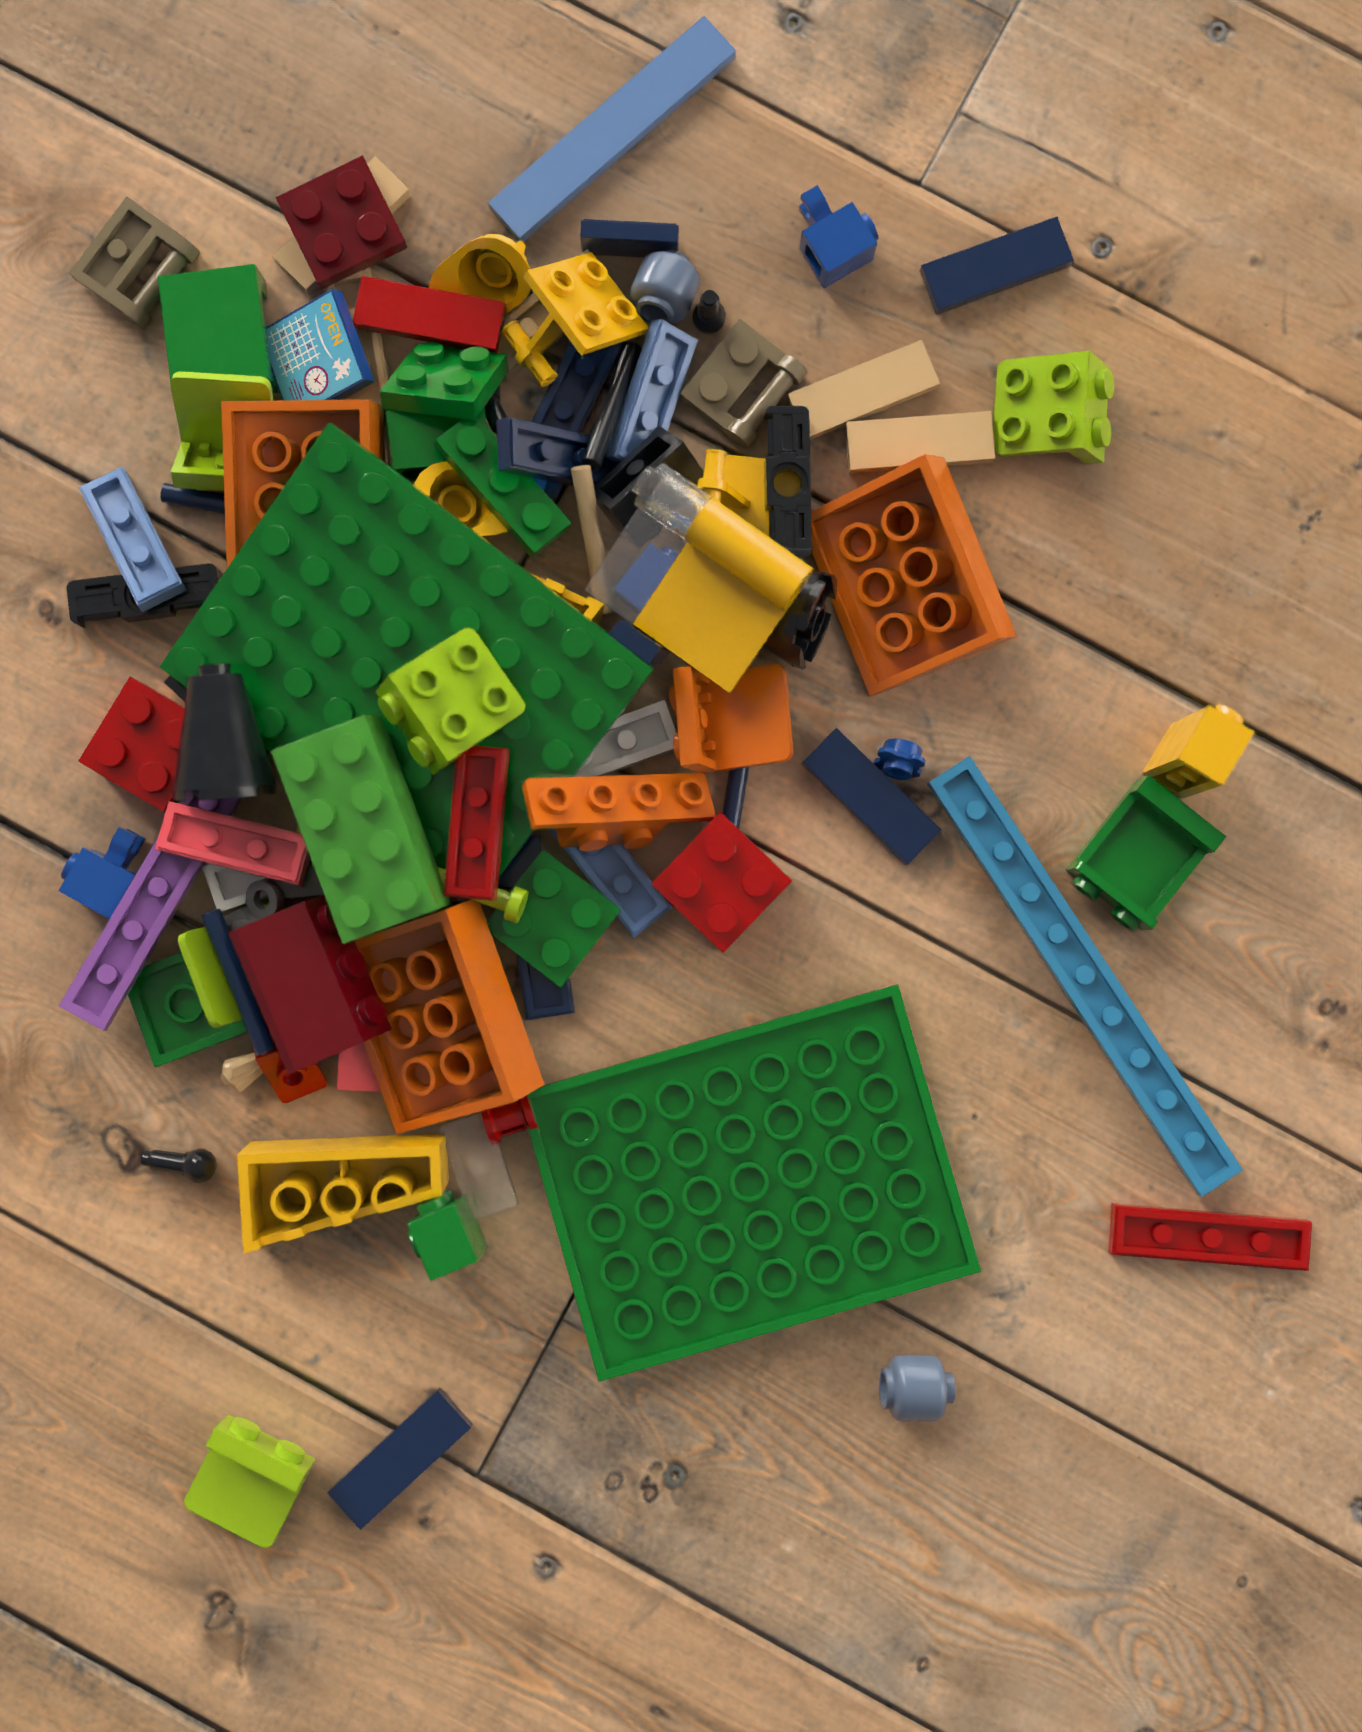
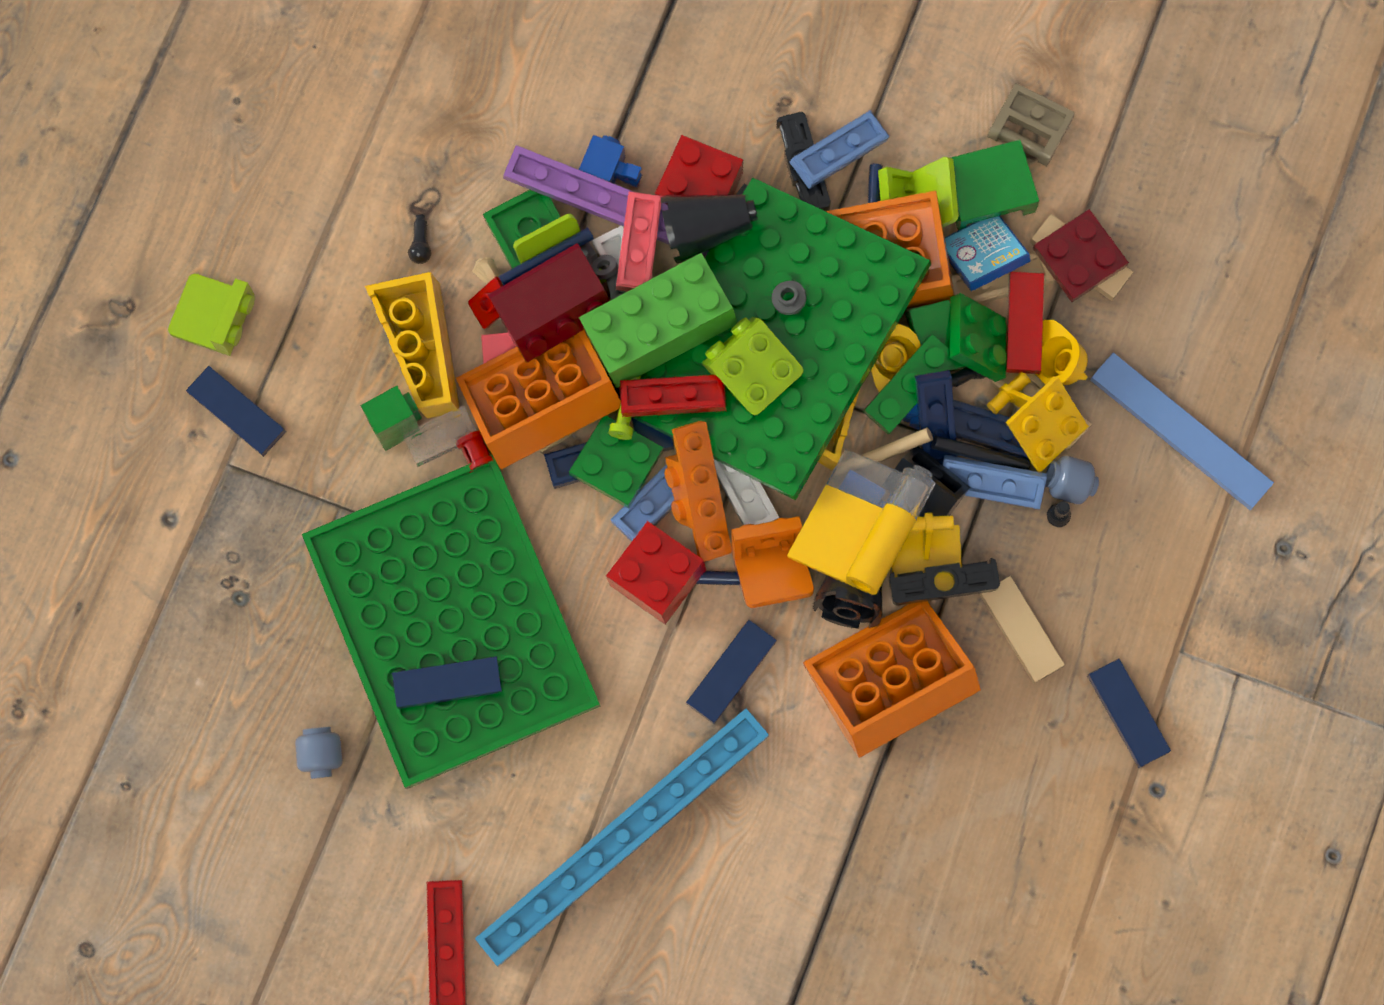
camera: 85 degrees right, 10 degrees down
(370, 633) = (795, 304): none -> dark grey plate
(627, 237) = (1102, 451): dark blue tile -> none
(639, 642) = (812, 488): dark blue tile -> none
(731, 373) = (1020, 536): dark tan plate -> none
(837, 240) = (1125, 595): blue brick -> none
(843, 1196) = (447, 682): none -> dark blue tile
(896, 441) = (989, 659): tan tile -> none
(900, 759) = (759, 686): blue plate -> none
(1053, 406) = (1030, 766): lime bracket -> none
(1143, 854) = (713, 868): green panel -> none
(1199, 751) = (791, 886): yellow brick -> none

